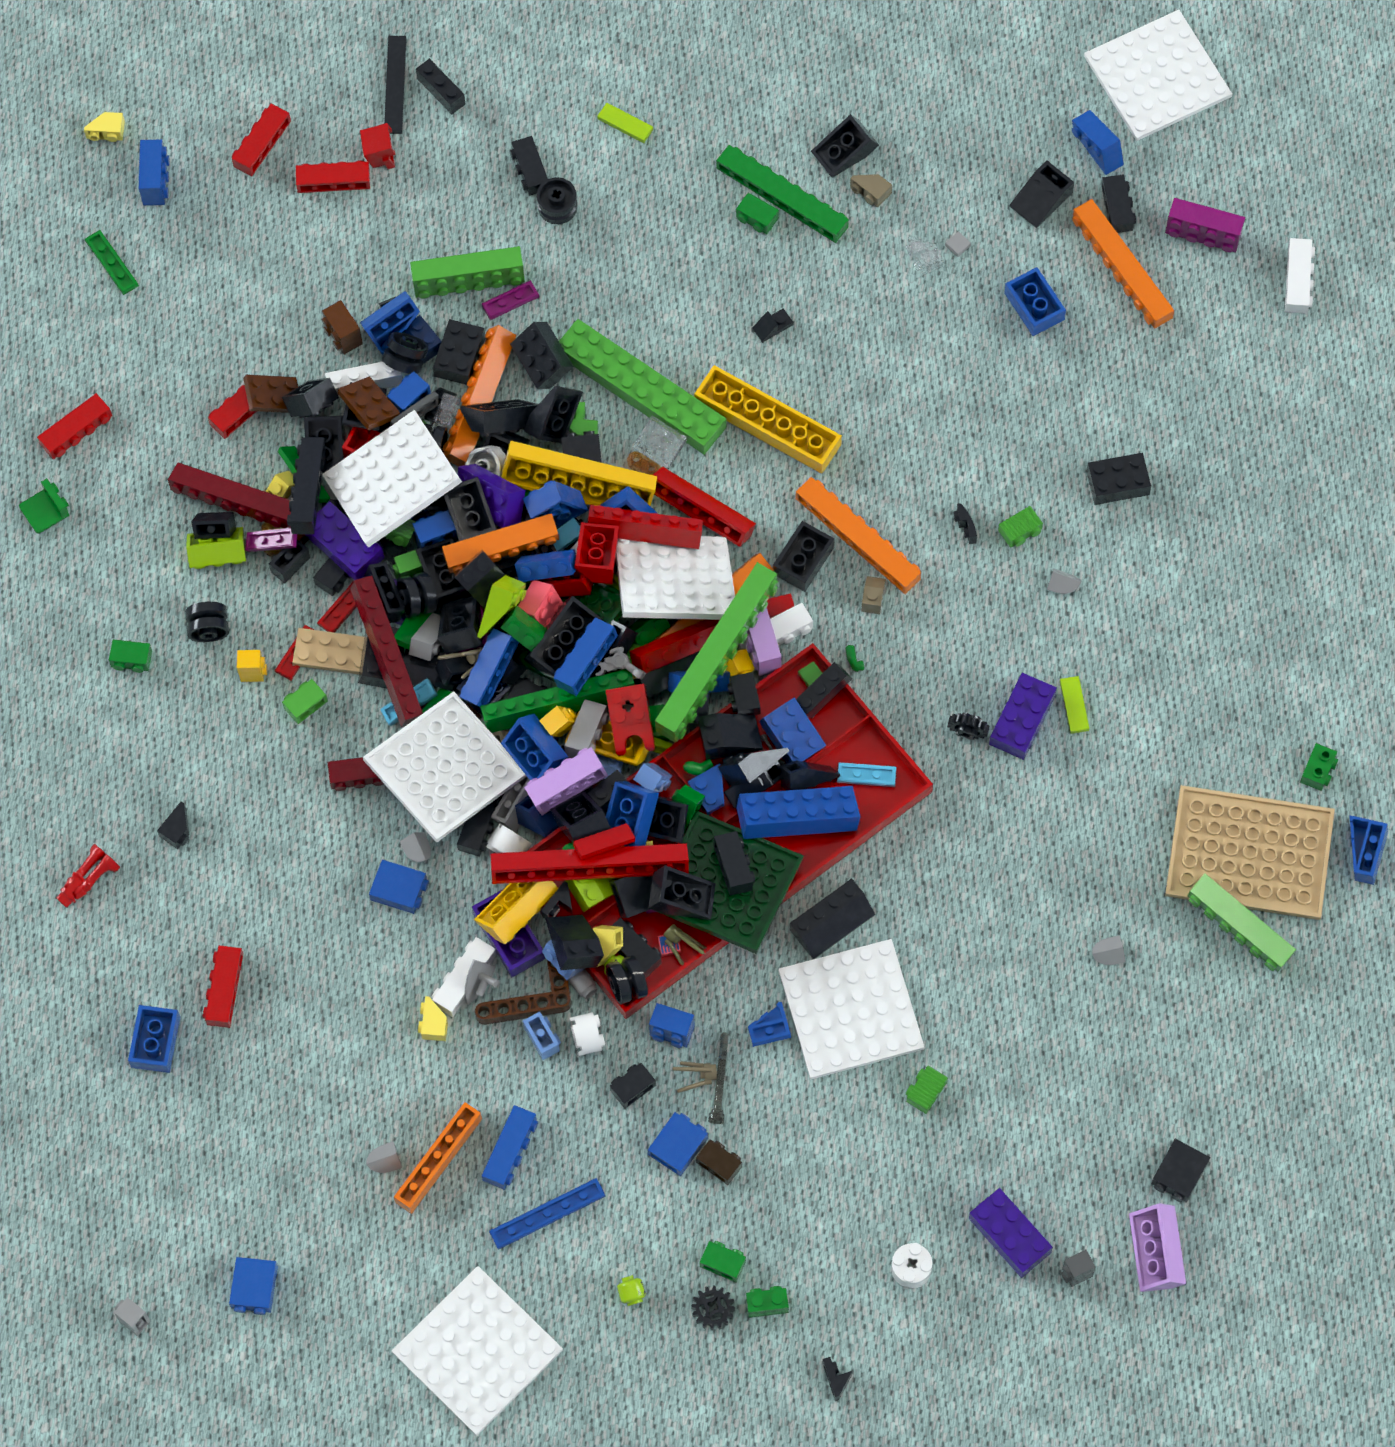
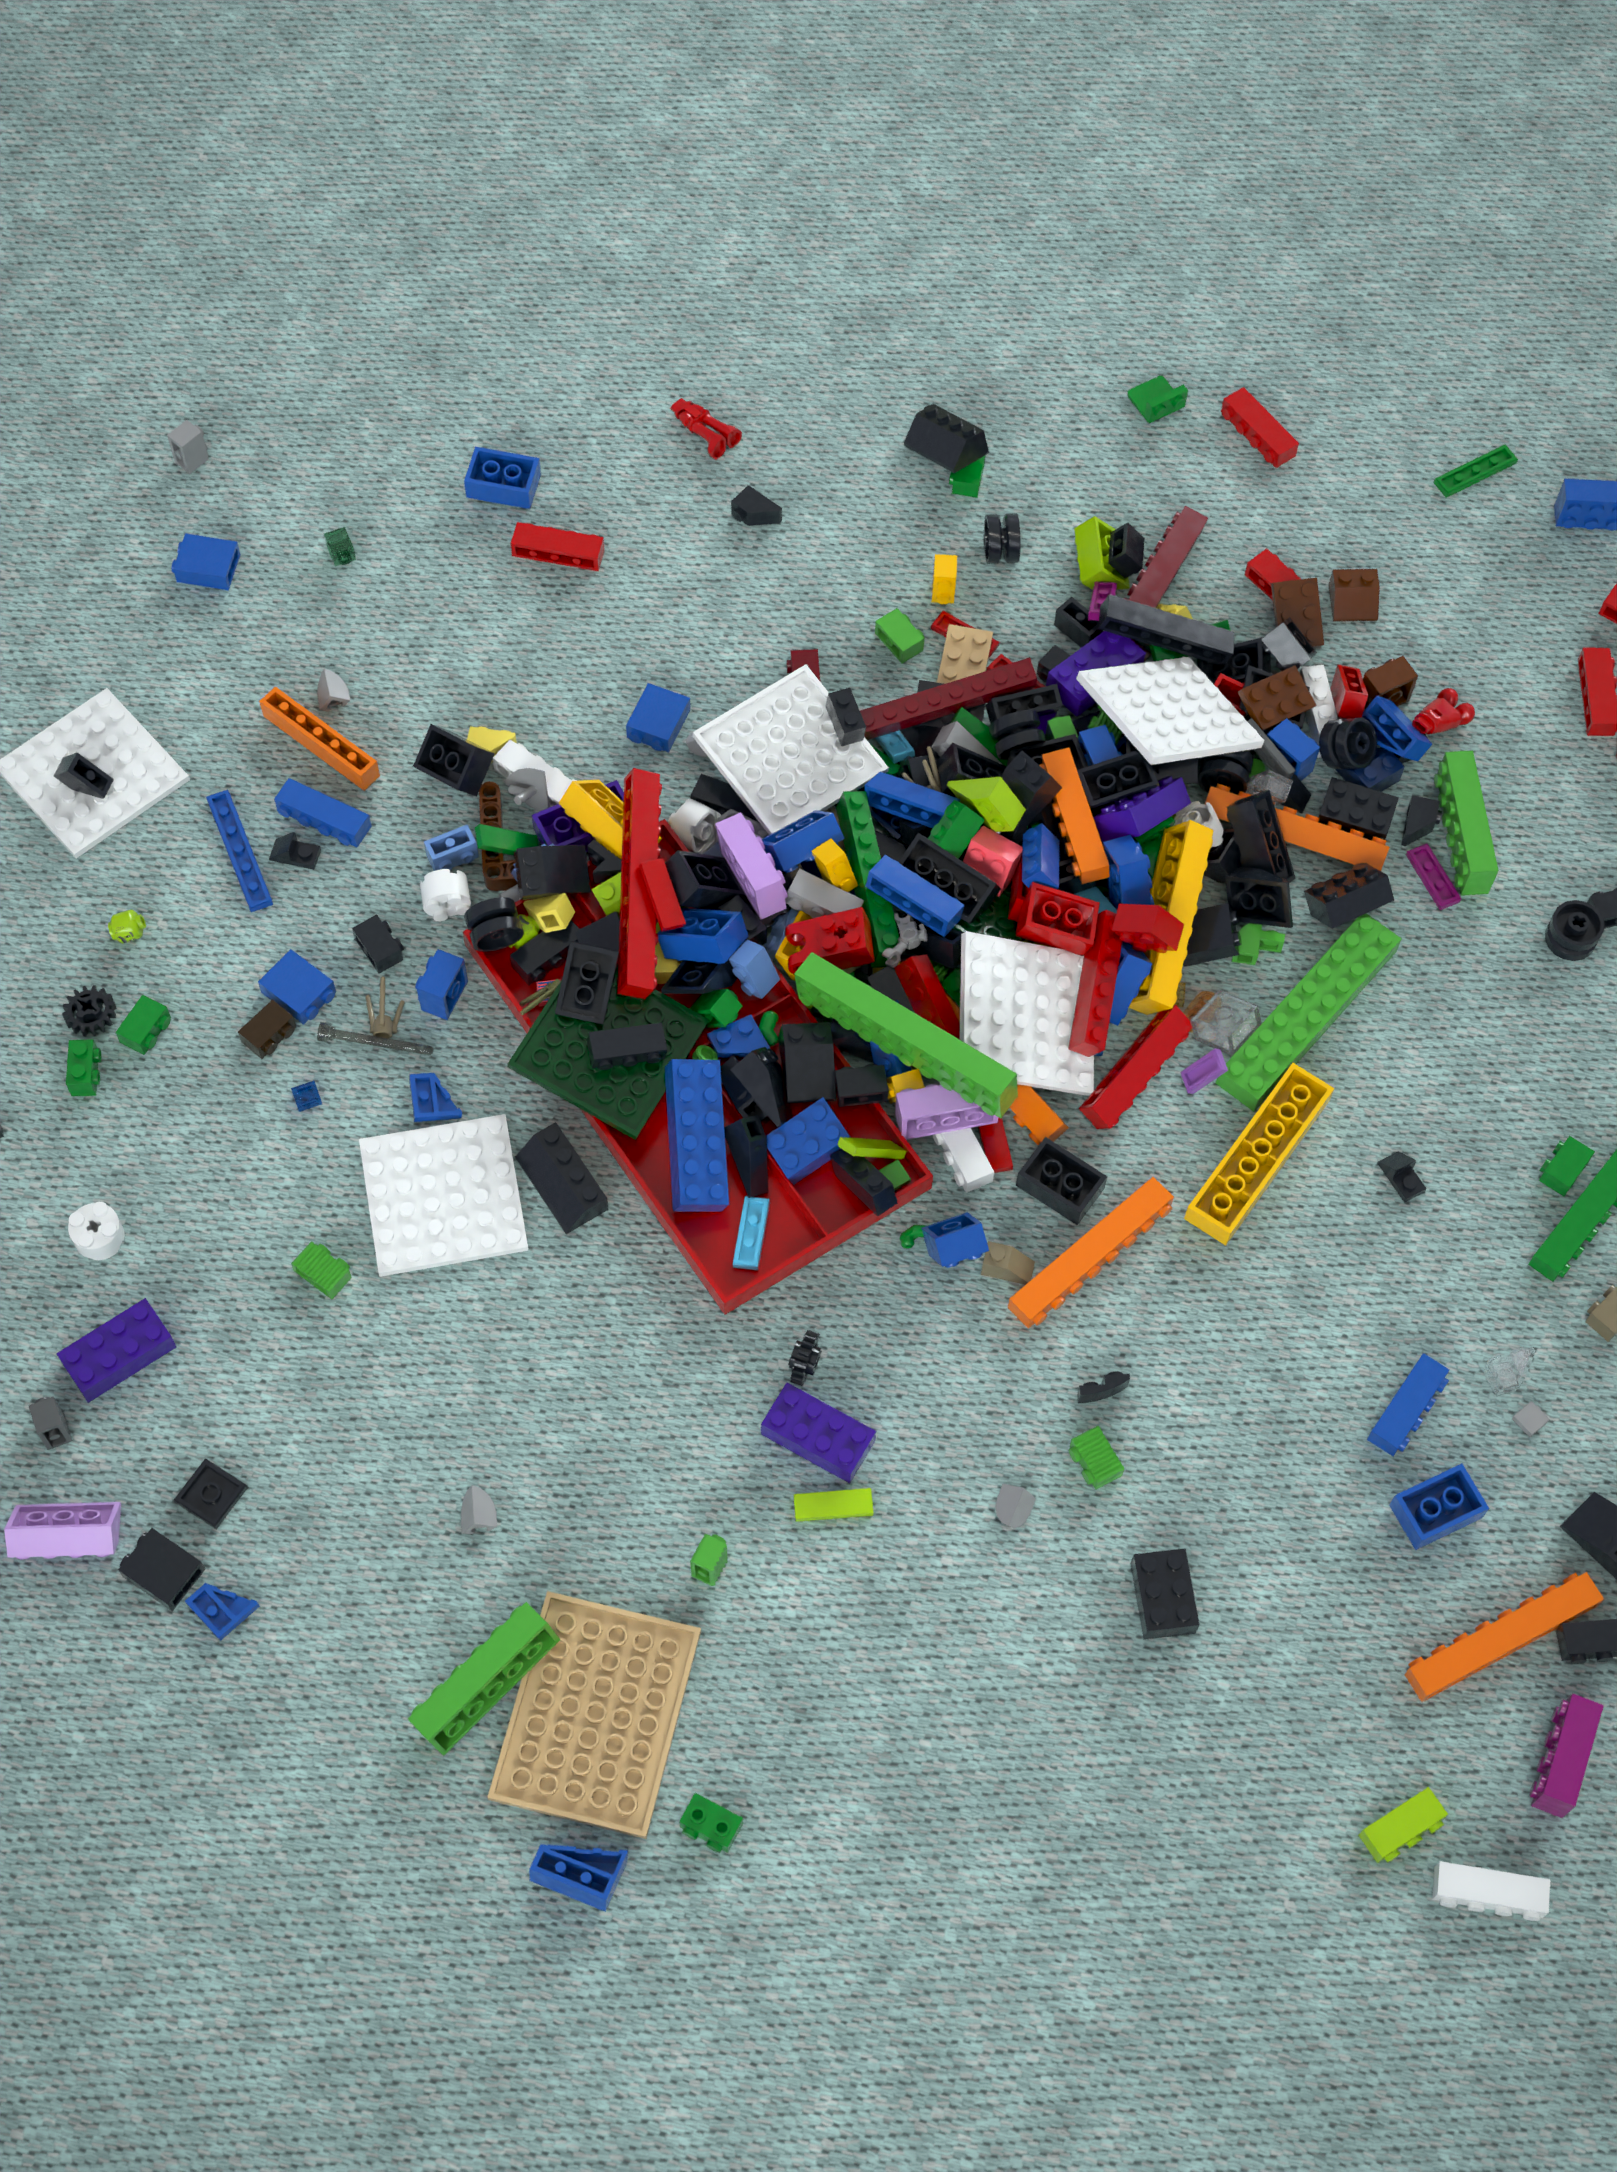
camera: 90 degrees right, 5 degrees down
(106, 670) = (946, 438): none -> black slope
(233, 1171) = (339, 546): none -> clear green brick
(247, 353) = (1354, 594): none -> reddish brown slope
(353, 353) = (1348, 692): none -> red brick
(367, 287) = (1441, 714): none -> red piece
(416, 720) = (845, 716): none -> black brick
(461, 308) = (1420, 819): none -> black slope
(461, 1038) = (453, 760): none -> black brick
(492, 1347) = (83, 776): none -> black slope
(534, 989) = (503, 840): none -> green tile
(547, 1167) = (296, 853): none -> black slope
(605, 484) = (1147, 927): none -> red brick
(702, 458) = (1204, 1071): none -> medium lavender tile
(726, 813) = (704, 1053): none -> bright green tile
(774, 1125) = (306, 1096): none -> clear blue tile
(797, 684) = (871, 1148): none -> lime tile
(862, 626) = (955, 1240): none -> blue brick
(957, 321) = (1408, 1404): none -> blue brick
(1115, 1147) = (210, 1493): none -> black tile
(1131, 780) = (709, 1559): none -> bright green brick
(1205, 1124) = (220, 1609): none -> blue wing
(1262, 328) = (1404, 1826): none -> lime brick

